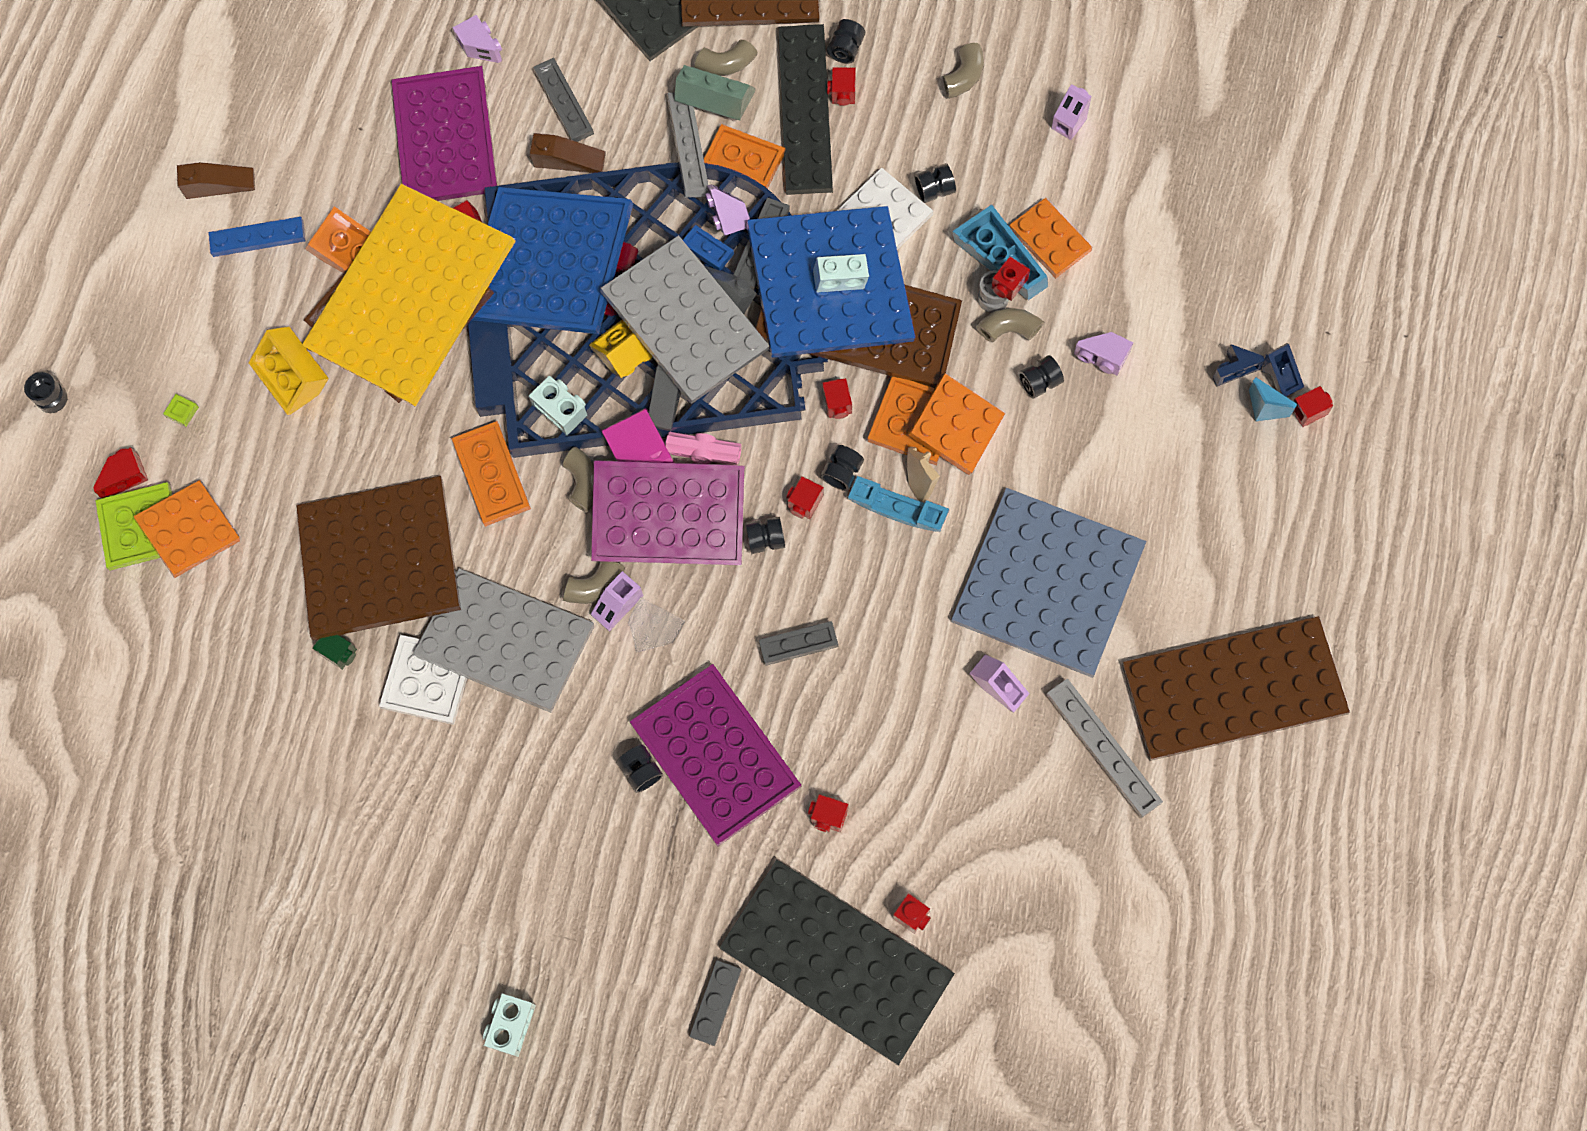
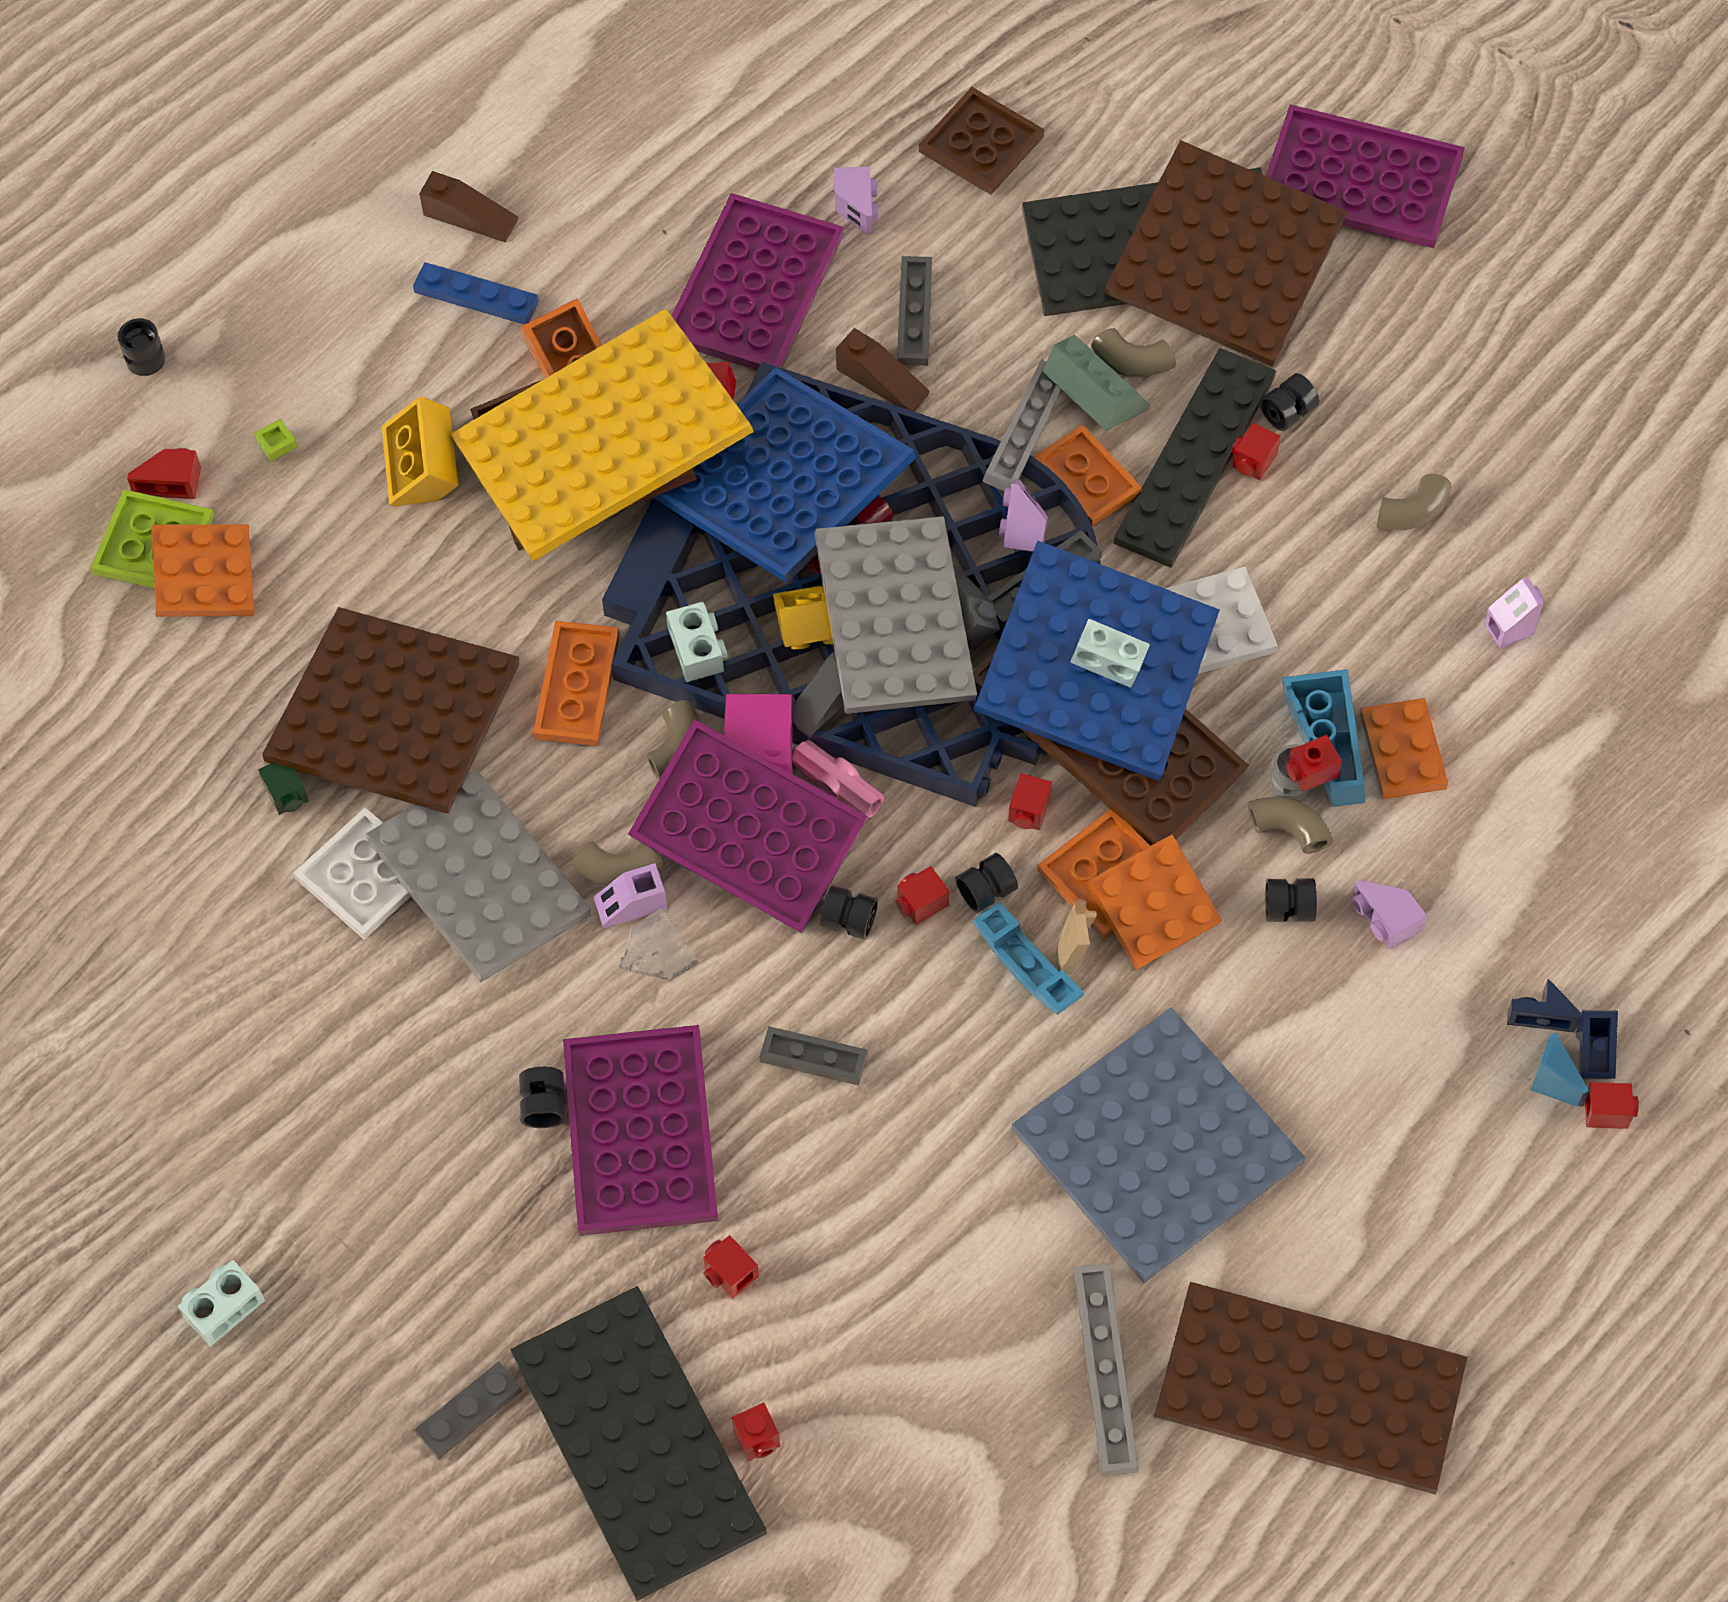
camera: 25 degrees right, 10 degrees down
(708, 248) = (976, 553): blue plate -> none
(934, 183) = (1298, 614): black wheel -> none
(999, 682) = (1024, 1226): lavender slope -> none

